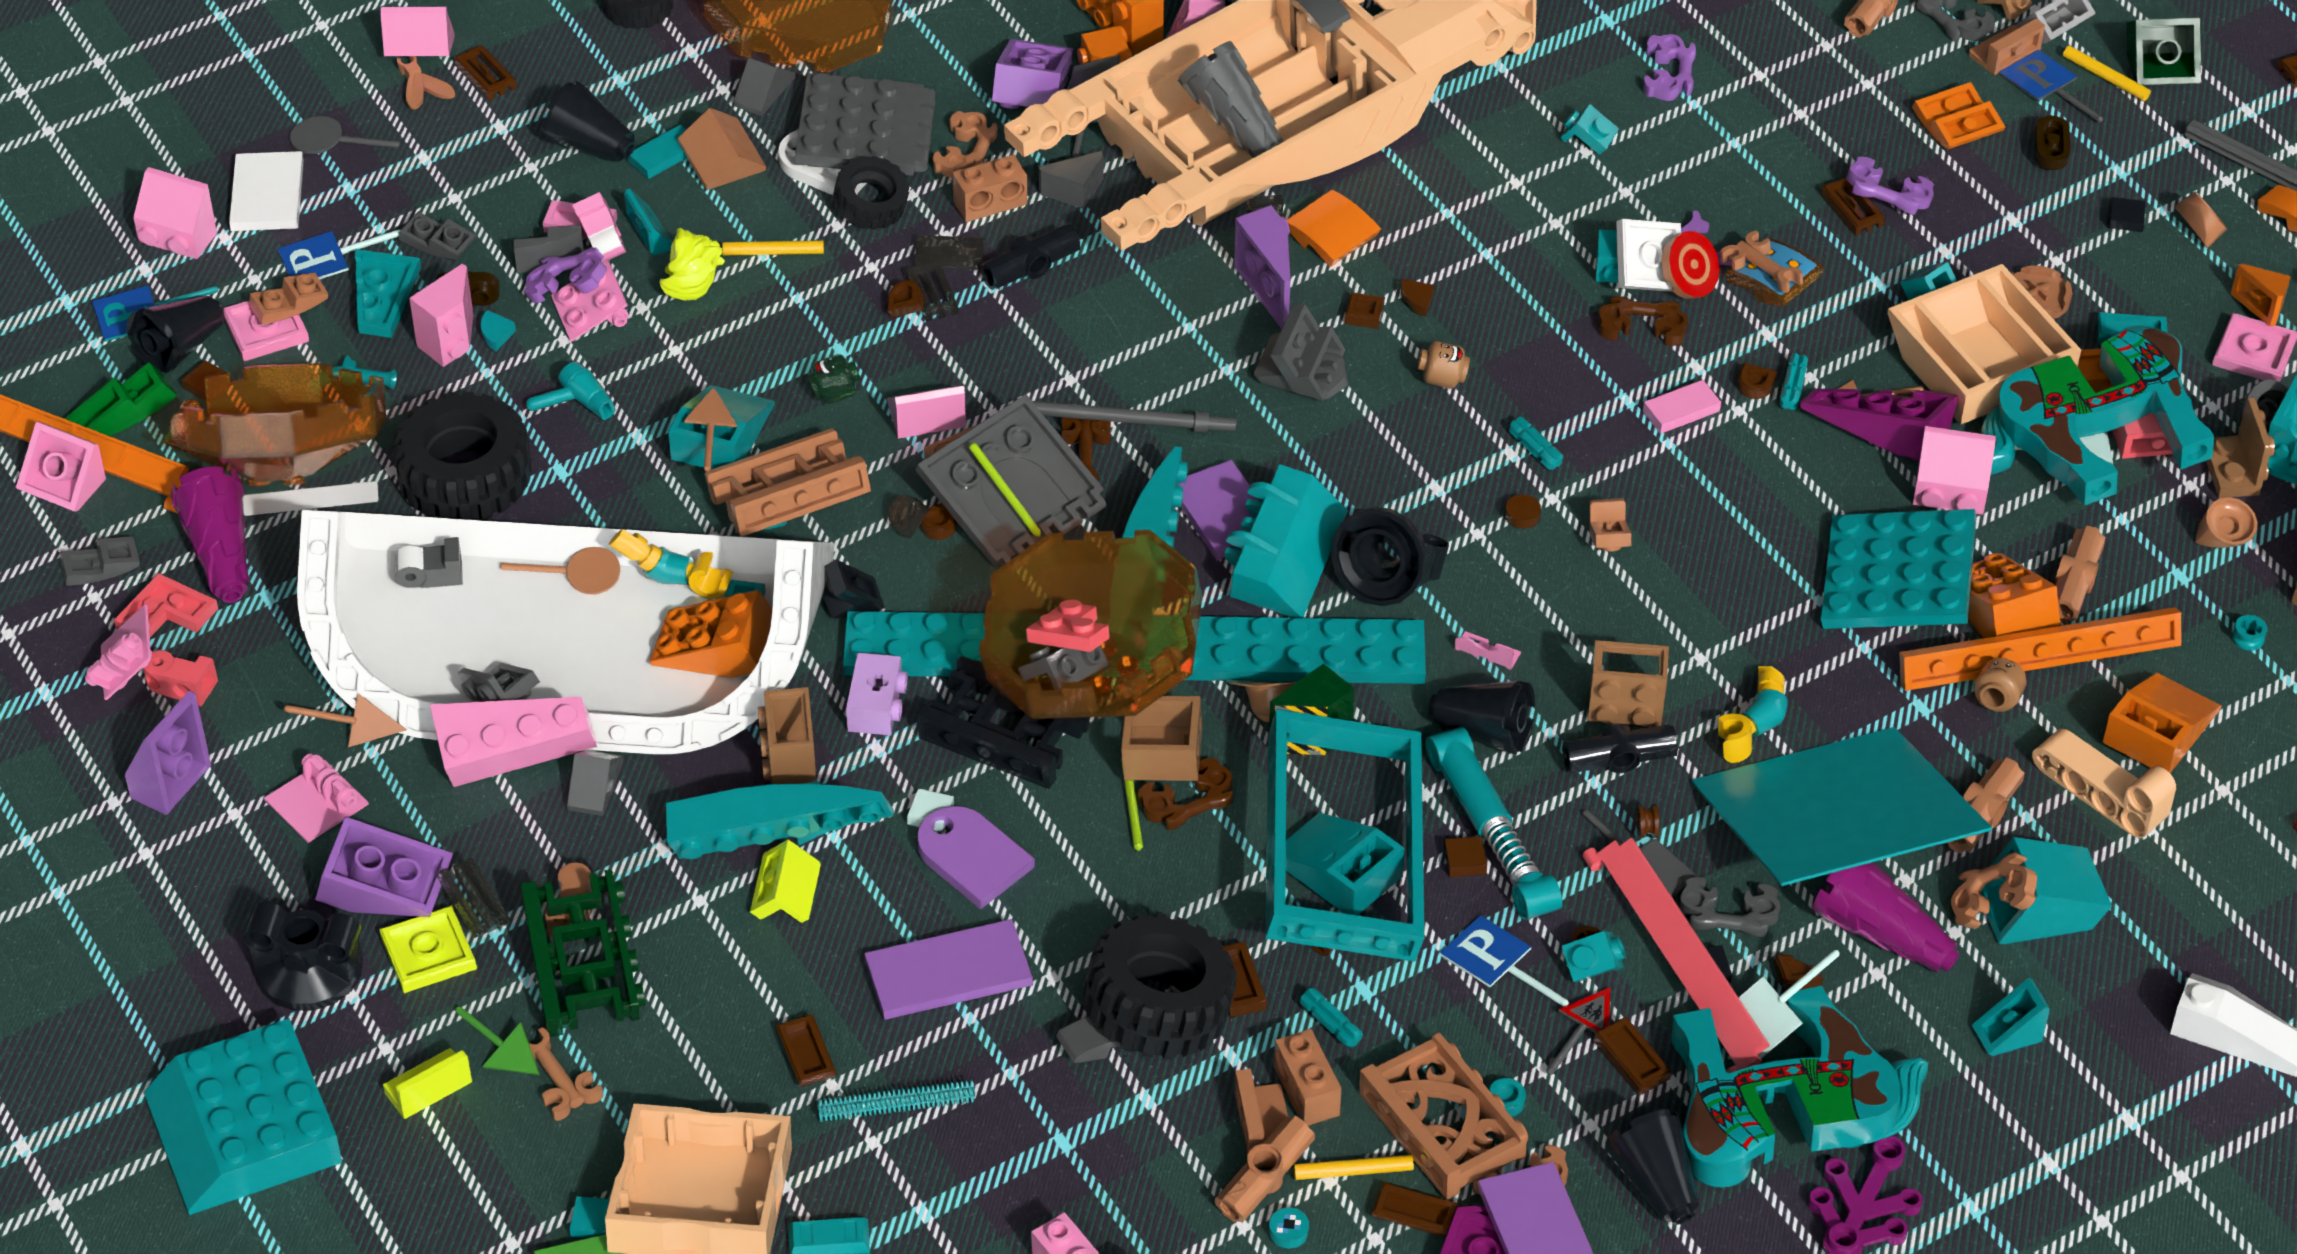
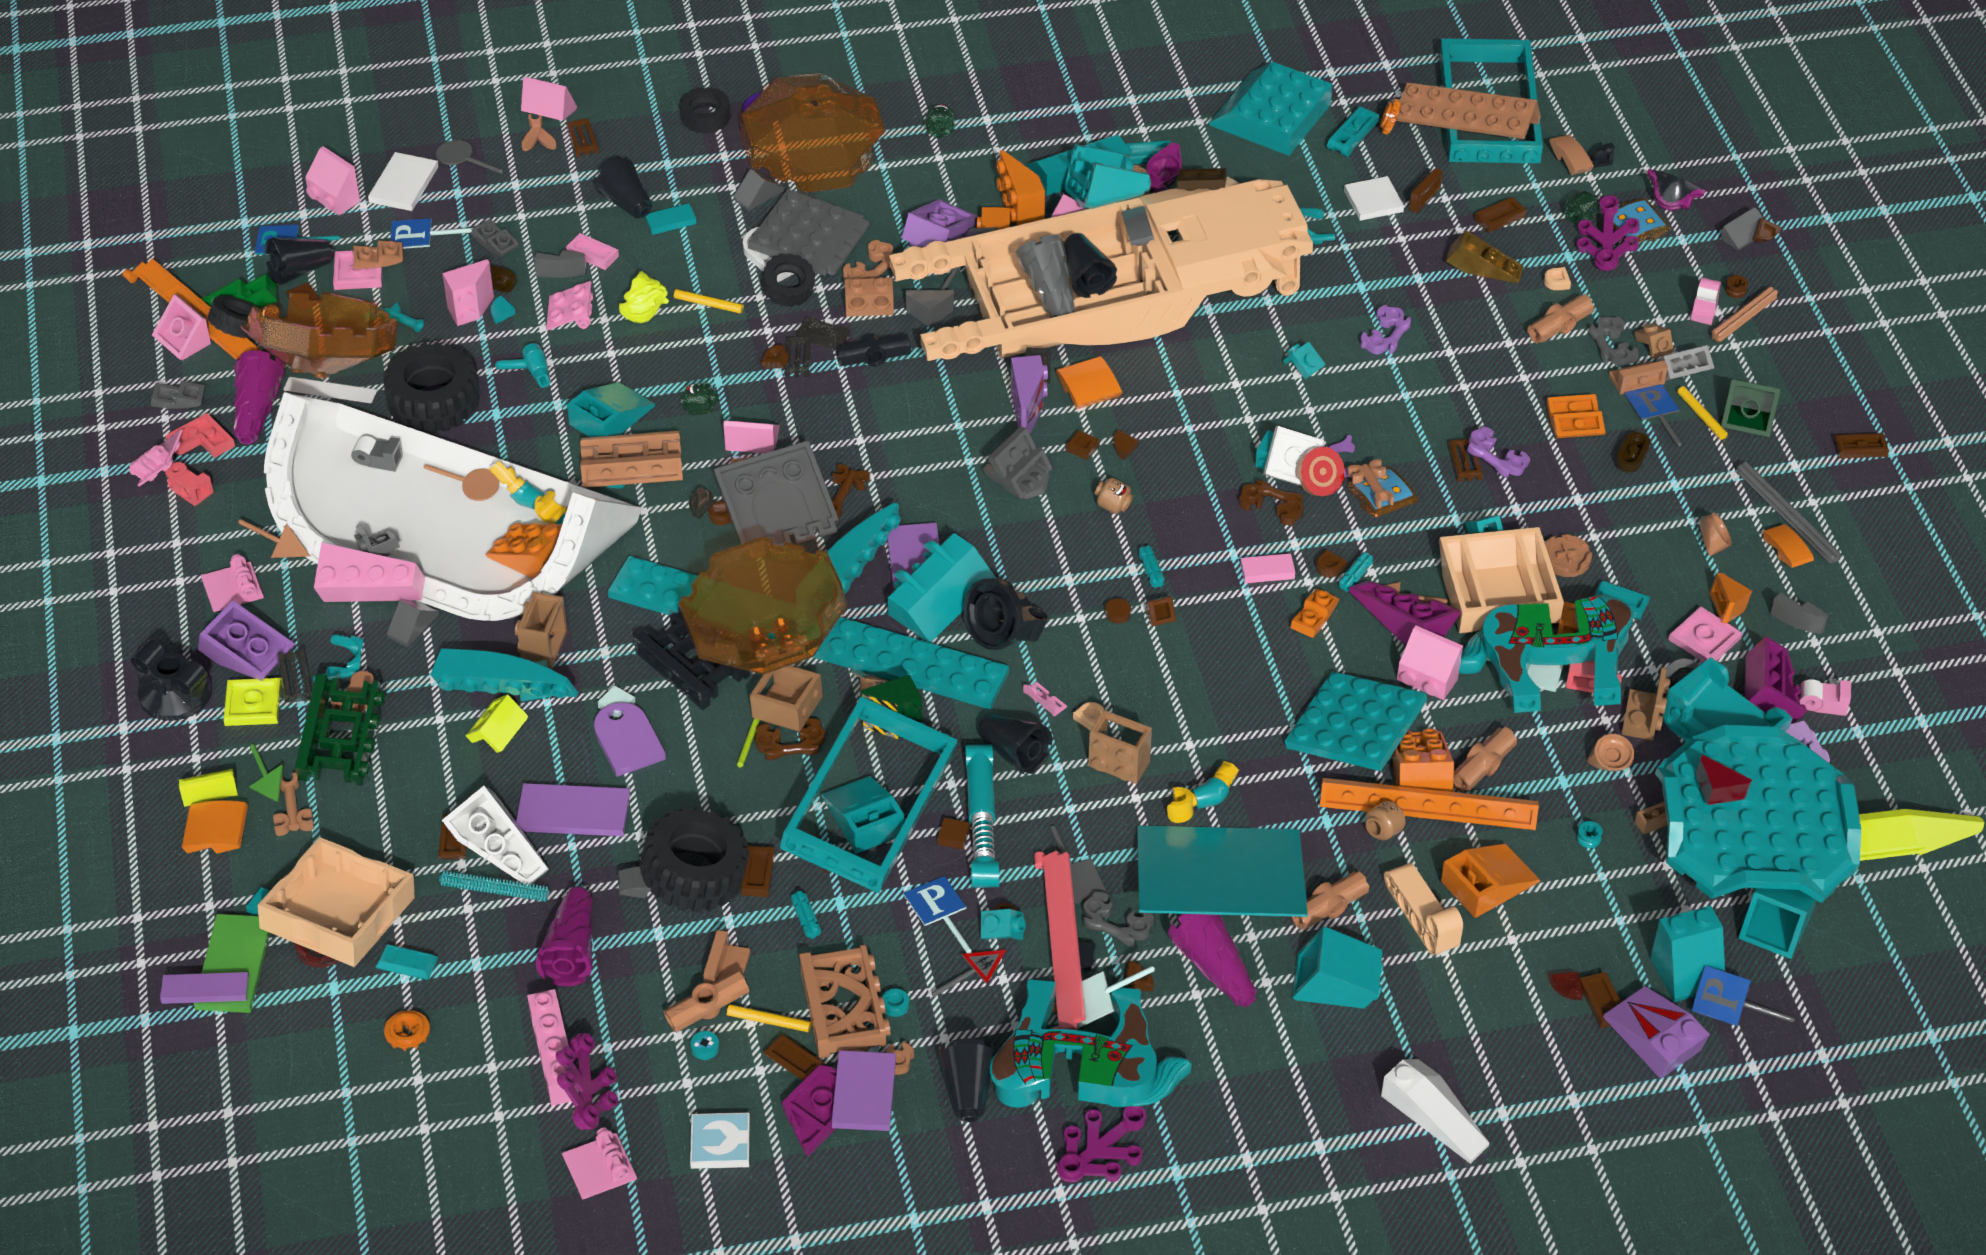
camera: 20 degrees right, 0 degrees up
(133, 431) = (229, 313): none -> black tyre
(170, 758) = (149, 531): medium lavender slope -> none
(241, 1117) = (83, 775): teal slope -> none
(383, 290) = (441, 258): teal wing -> none
(467, 1132) = (215, 826): none -> orange slope
(539, 835) = (355, 645): none -> teal helmet
(586, 273) = (570, 287): medium lavender helmet -> none
(600, 226) = (598, 258): bright pink leg -> none
(646, 224) = (634, 260): teal slope -> none
(710, 412) = (598, 400): nougat piece -> none
(720, 149) = (705, 226): nougat slope -> none
(850, 590) = (636, 541): black slope -> none
(864, 1032) = (493, 833): none -> white wedge
(875, 694) = (617, 615): lavender brick -> none
(1003, 487) = (767, 501): lime axle -> none
(1045, 1147) = (568, 943): none -> magenta cone
(1063, 664) = (742, 628): dark grey bracket -> none
(1069, 627) = (750, 604): coral plate -> none
(1200, 421) = (928, 491): dark grey bar -> none
(1281, 73) = (1088, 266): none -> black cone
(1307, 1077) = (765, 949): nougat brick -> none
(1558, 655) = (1088, 714): none -> light nougat tile
(1576, 495) = (1160, 611): none -> reddish brown slope
(1608, 524) = (1170, 635): nougat bracket -> none
(1620, 748) = (1096, 790): black piece -> none
(1632, 1056) = (995, 1000): reddish brown tile -> none
(1647, 821) = (1088, 844): reddish brown bush -> none
(1770, 447) = (1315, 613): none -> orange slope
(2014, 1021) = (1268, 1054): teal slope -> none
(2016, 890) = (1307, 963): nougat helmet -> none
(2127, 214) = (1662, 517): black tile -> none

